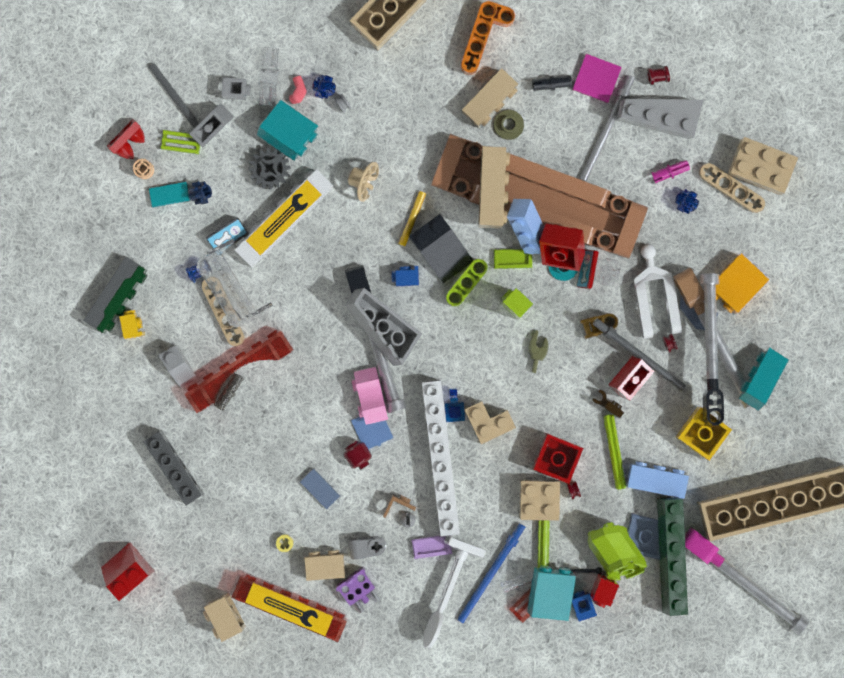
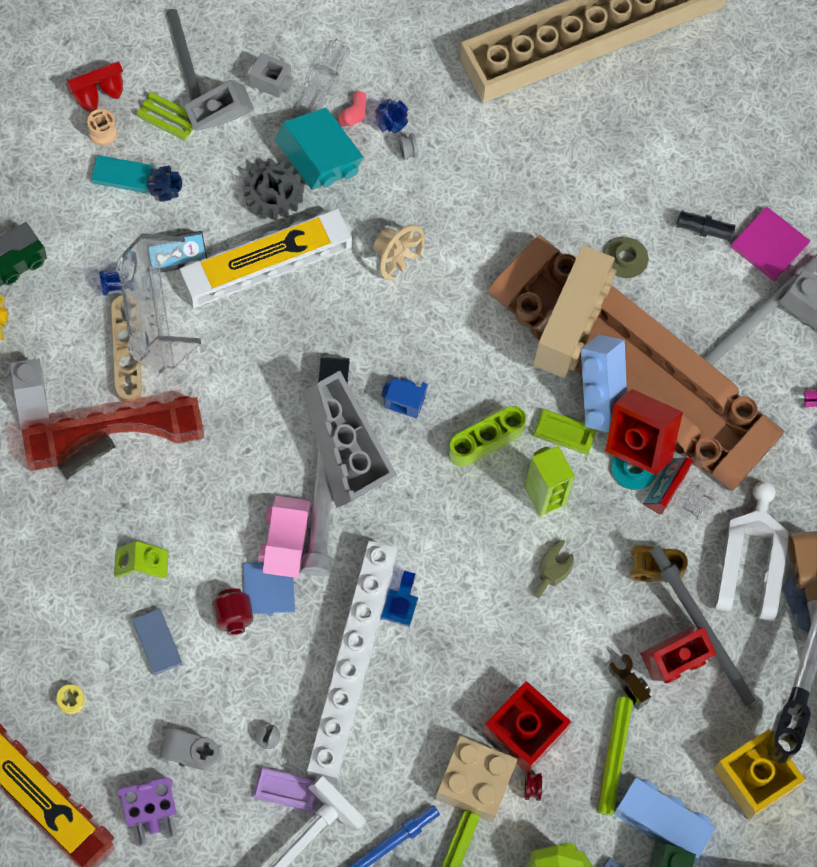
camera: 10 degrees right, 20 degrees down
(291, 443) = (142, 559): none -> lime bracket
(324, 566) = (115, 753): tan brick -> none
(402, 500) = (271, 702): medium nougat bracket -> none
(412, 218) = (427, 343): yellow bar -> none
(441, 248) = (468, 375): black slope -> none
(482, 39) = (630, 136): orange beam -> none
(486, 427) = (440, 645): tan brick -> none
(490, 98) = (613, 212): tan brick -> none
(669, 343) = (751, 629): dark red bush -> none

